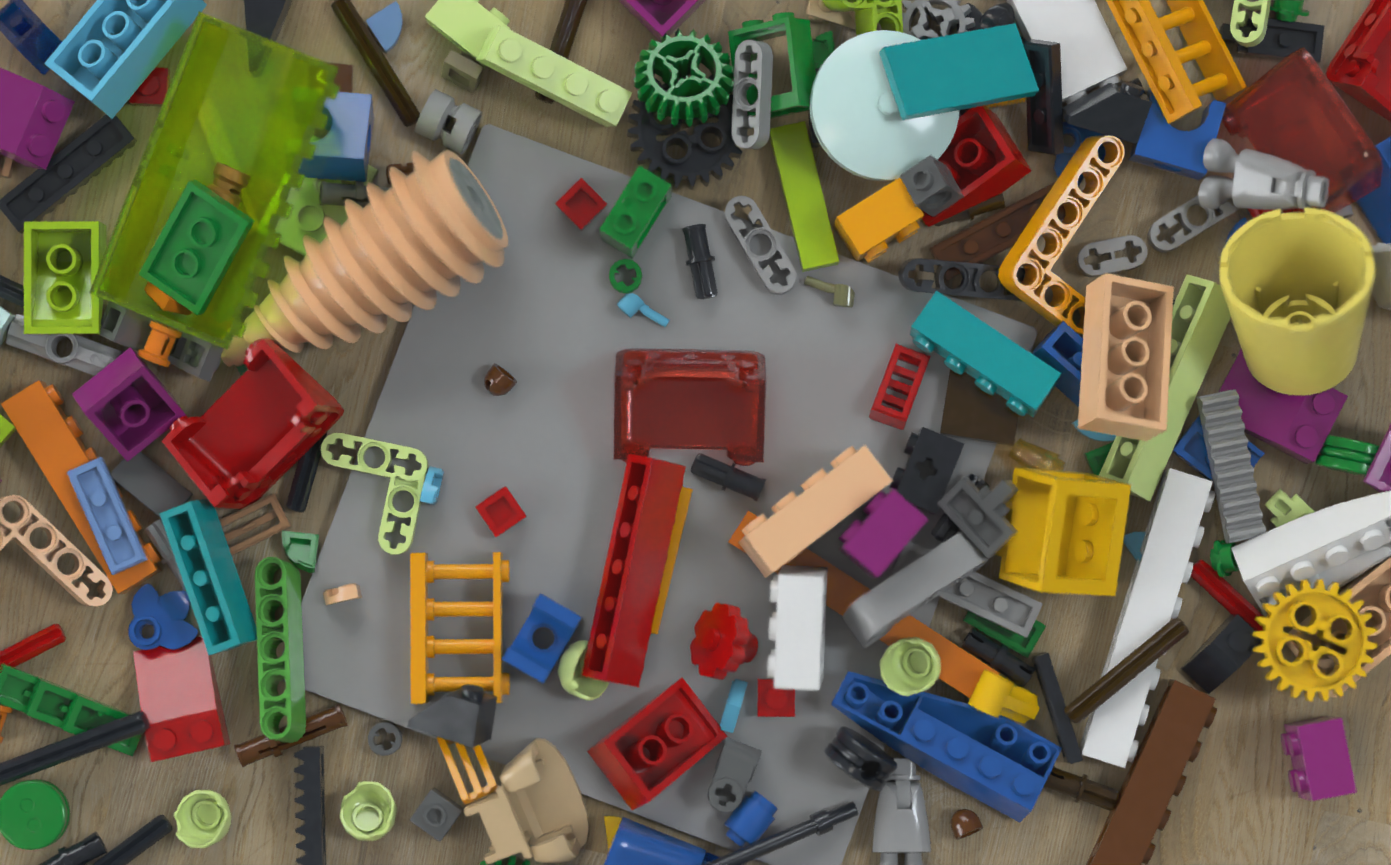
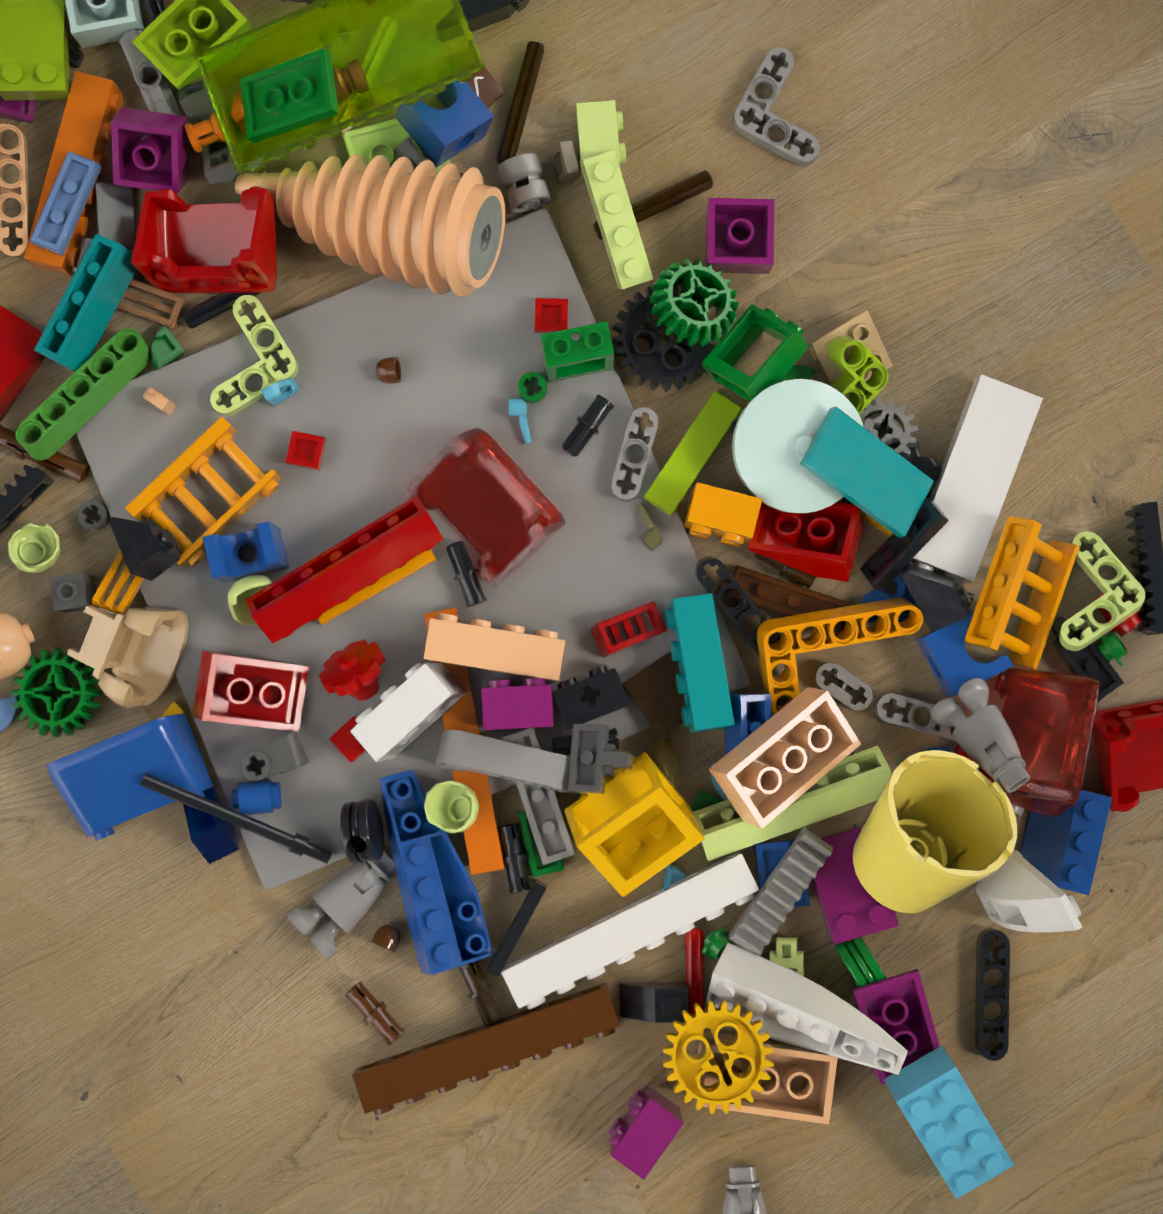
camera: 45 degrees right, 0 degrees up
(166, 616) = (40, 304): blue plate -> none
(387, 25) = (549, 89): medium blue tile -> none
(733, 705) = (321, 716): medium azure tile -> none
(742, 67) = (727, 341): light grey beam -> none
(931, 186) = (776, 525): dark grey brick -> none
(1002, 697) = (488, 883): yellow piece -> none
(1126, 670) = (582, 950): dark brown axle -> none

